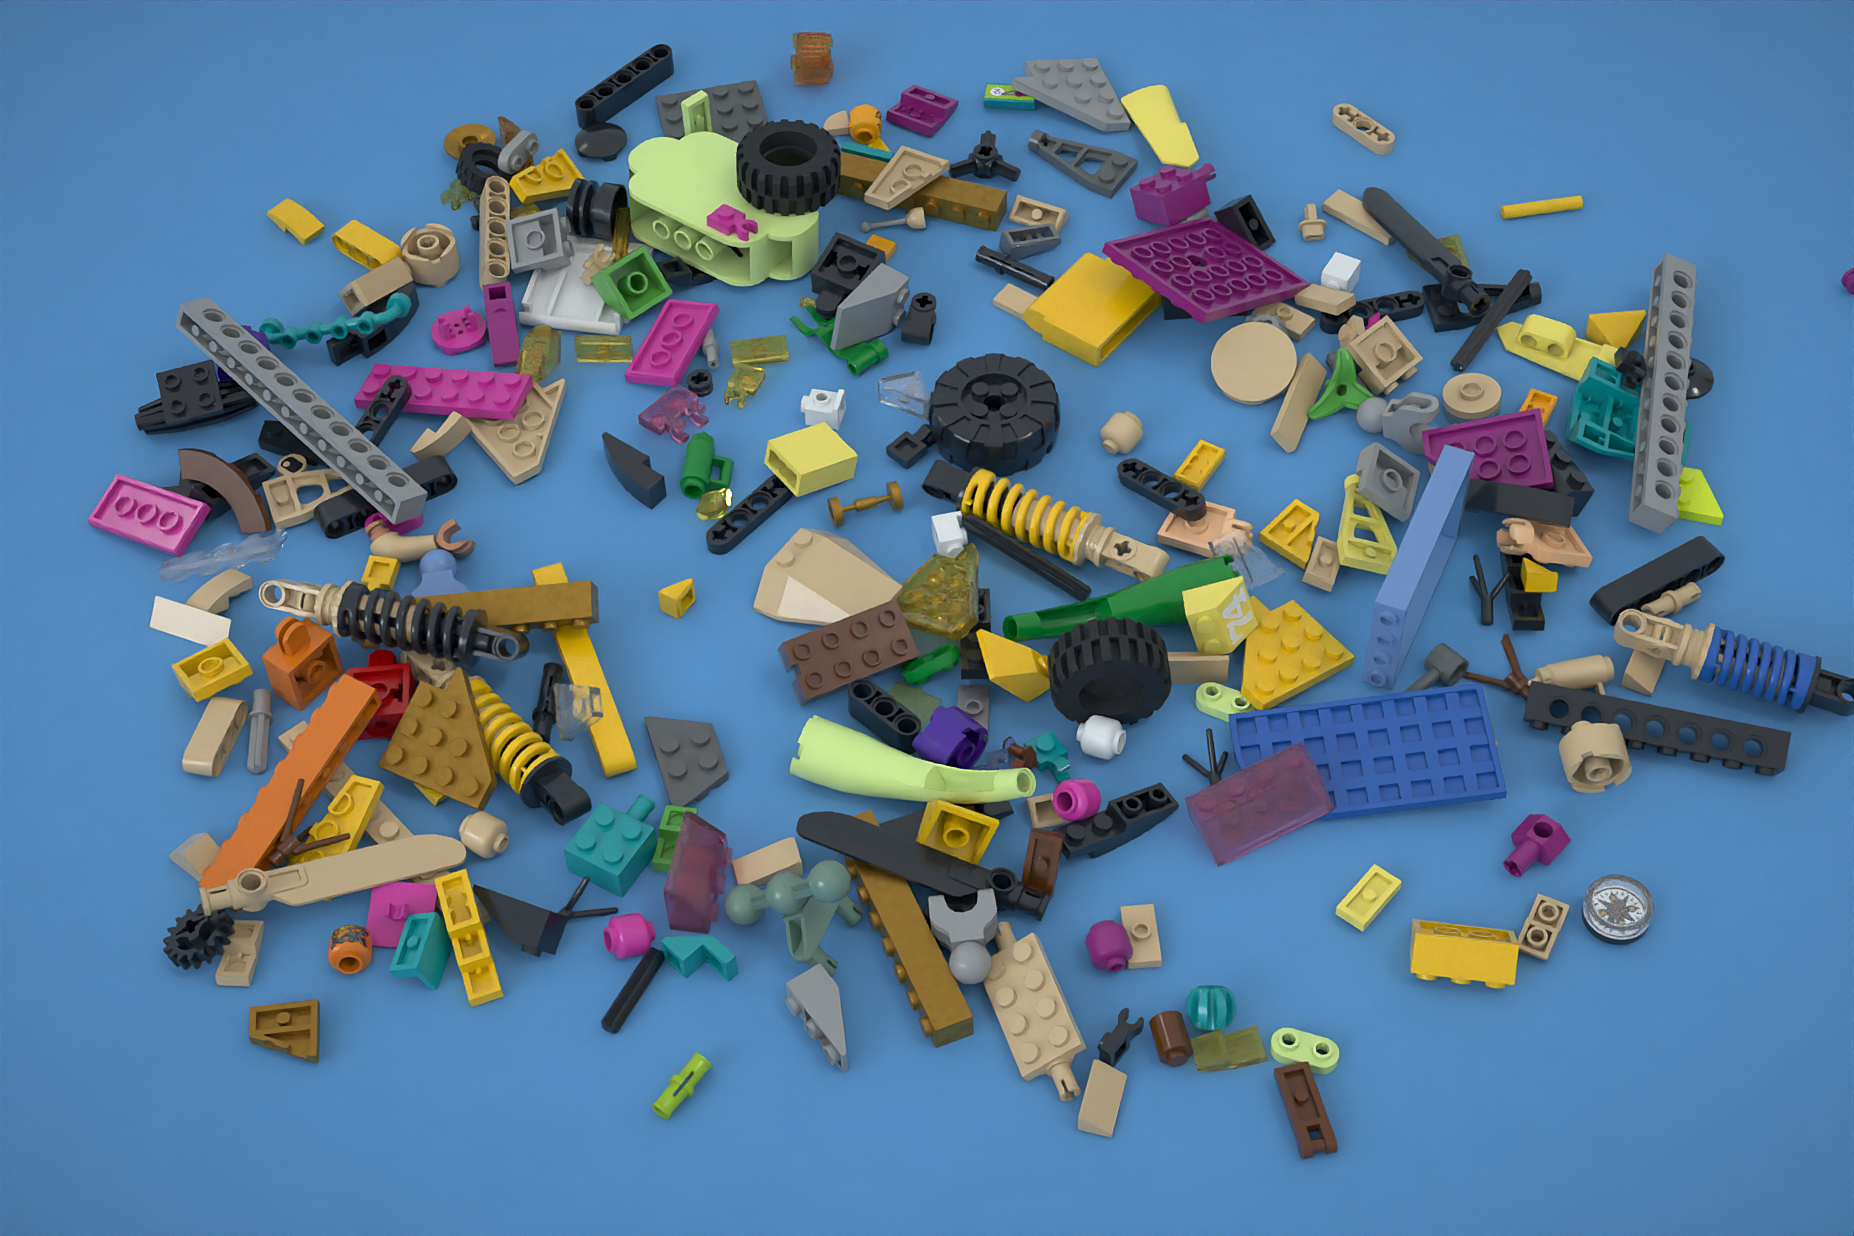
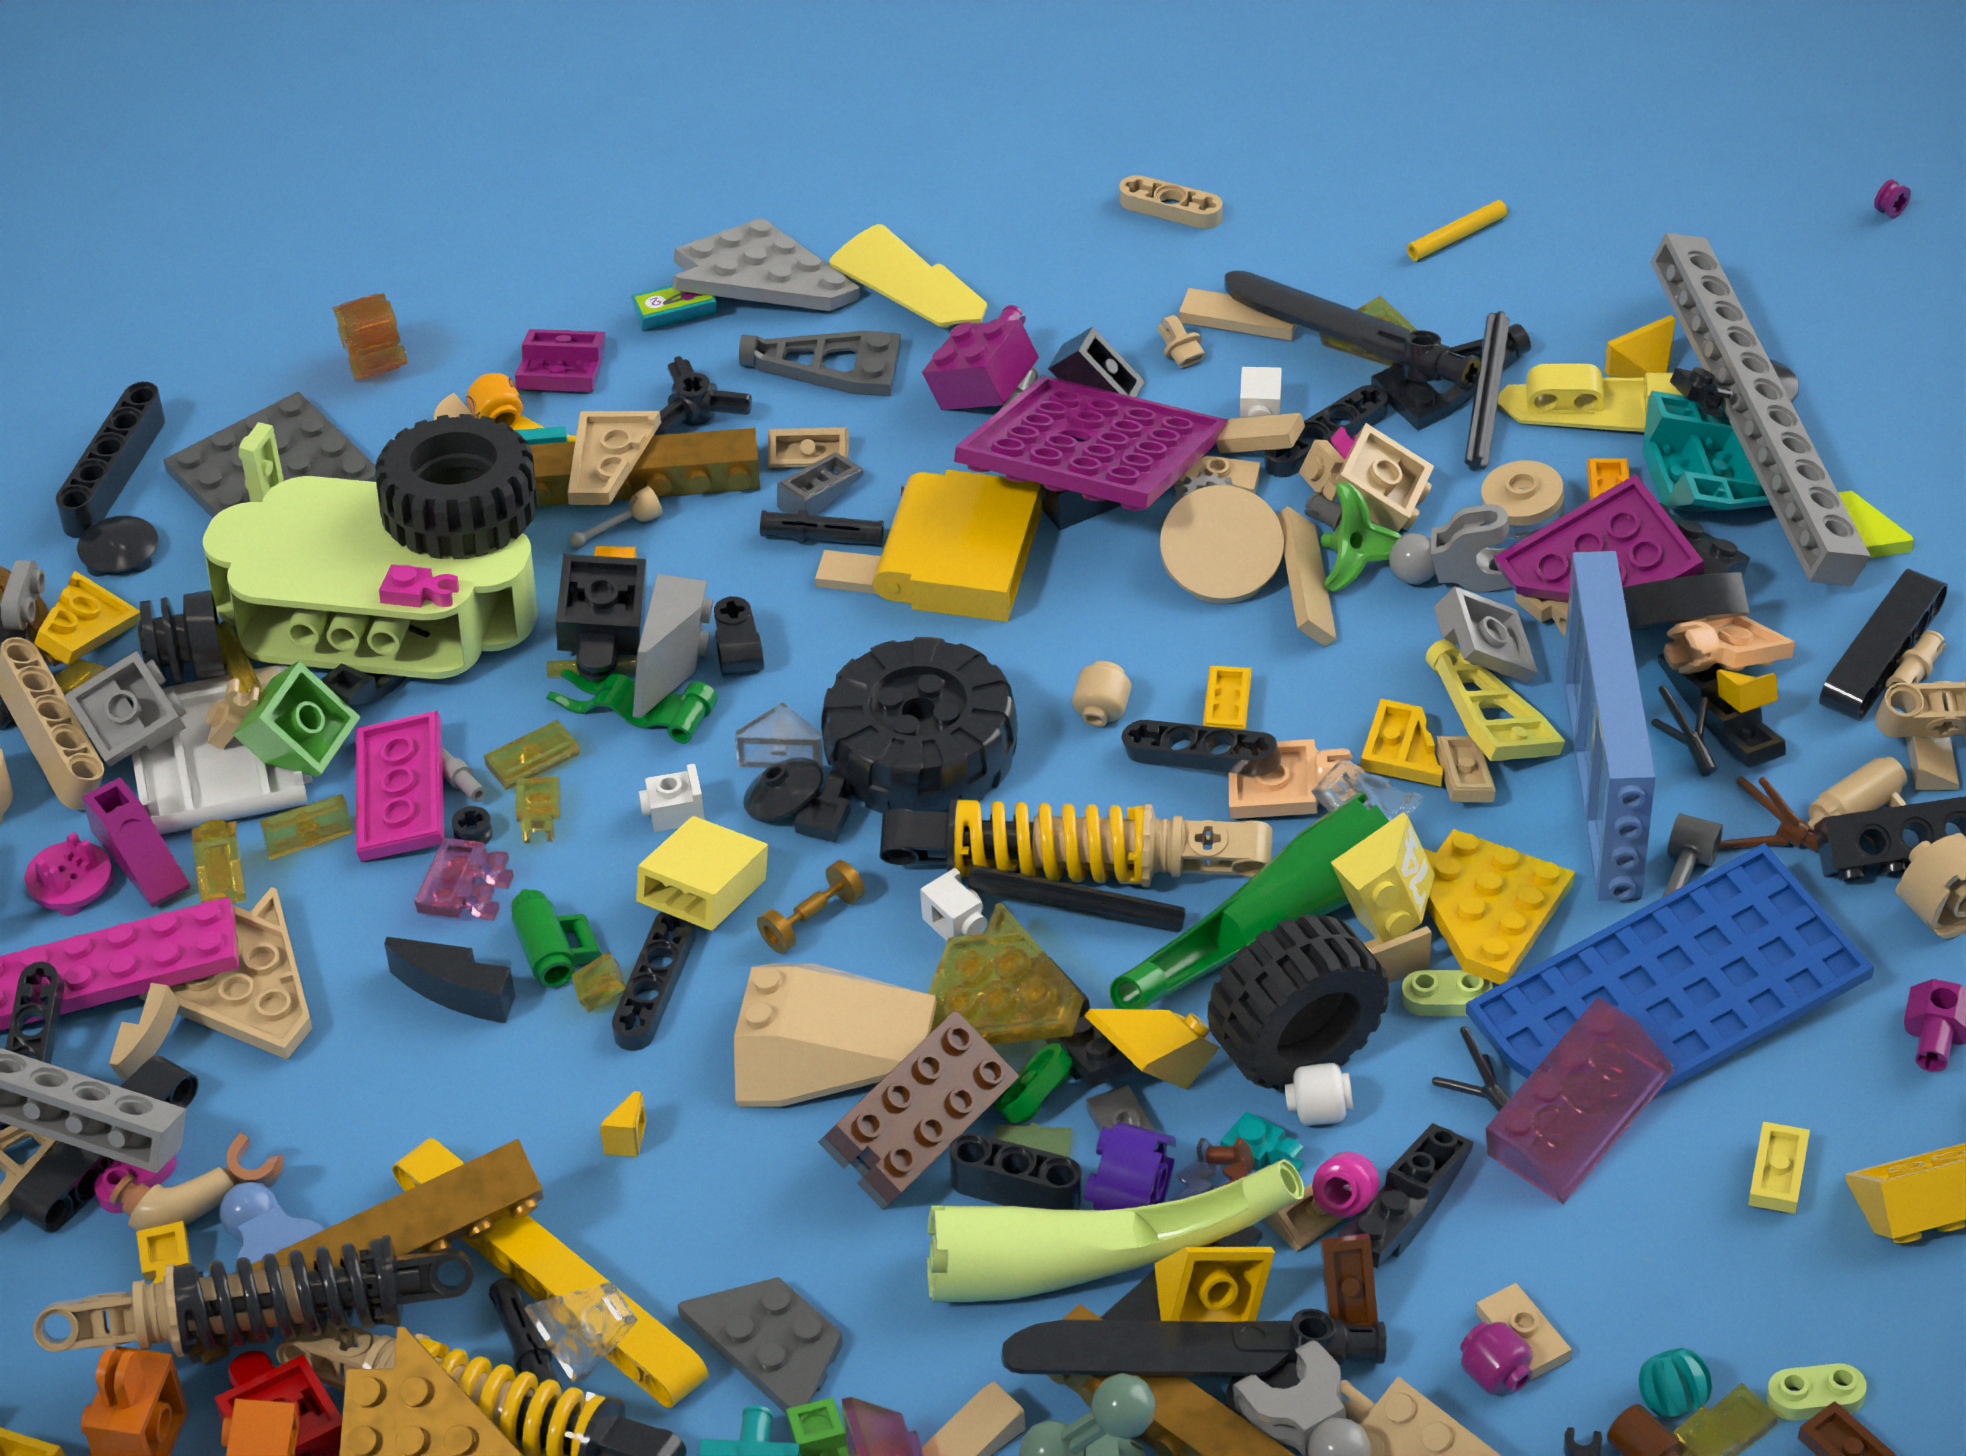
camera: 25 degrees left, 5 degrees down
(893, 424) = (783, 789): none -> black dish

